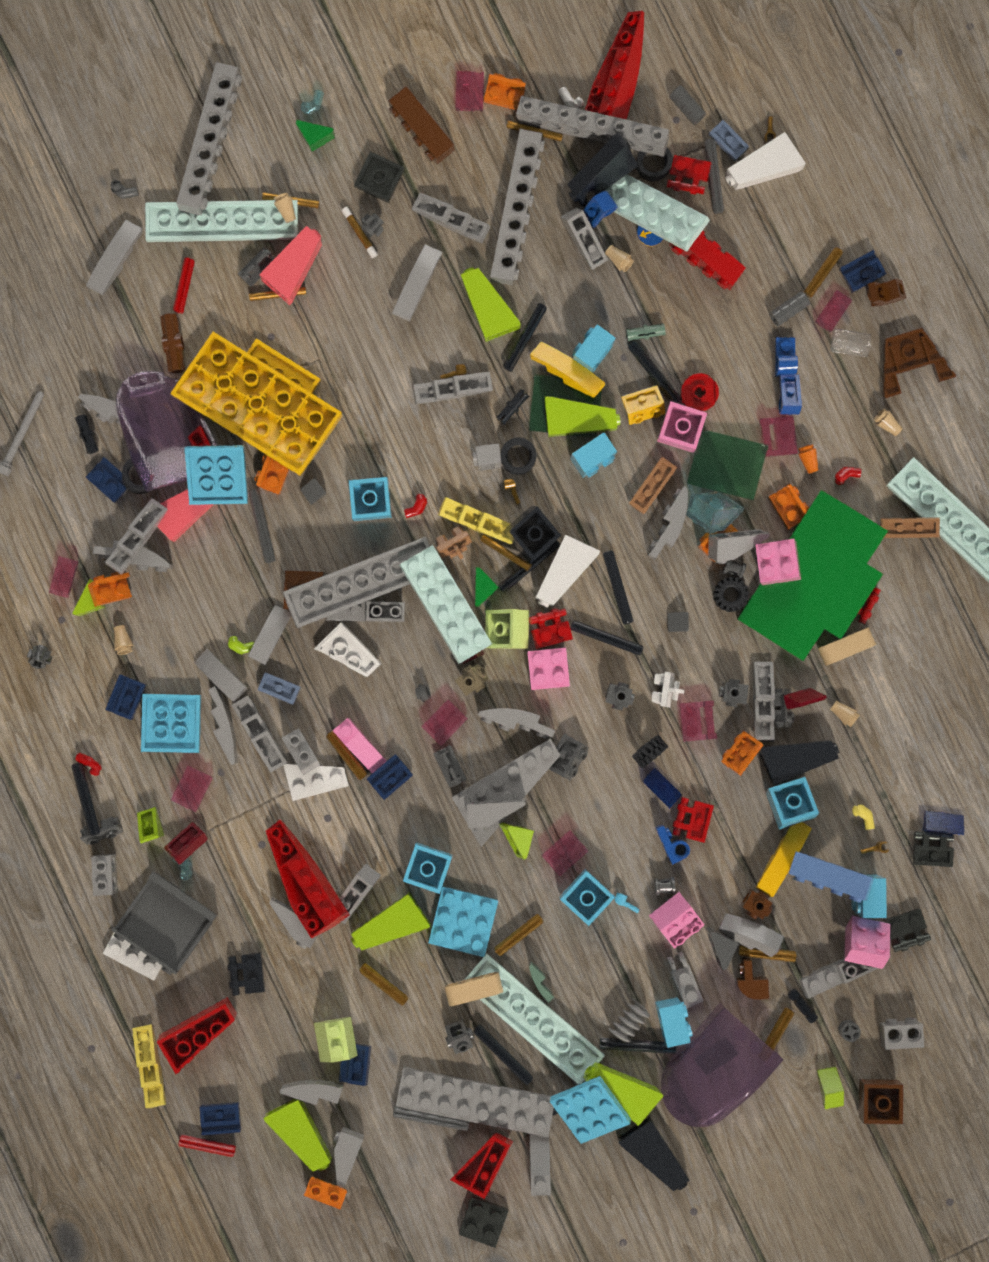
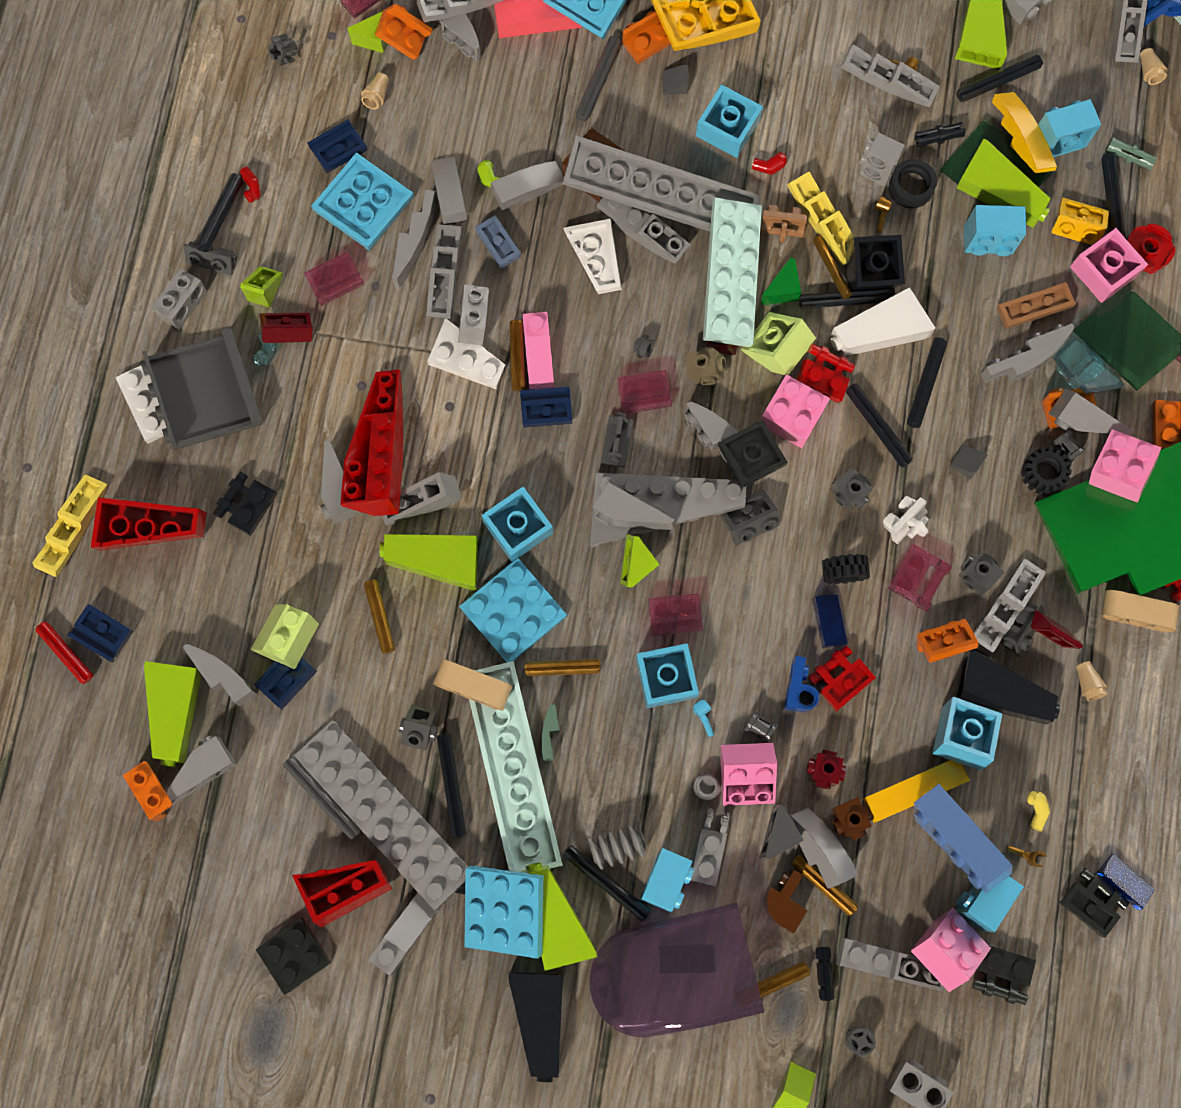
camera: 35 degrees right, 10 degrees down
(542, 720) = (752, 453): none -> pearl dark grey plate
(657, 945) = (706, 786): none -> light grey plate
(715, 881) = (816, 771): none -> dark red brick

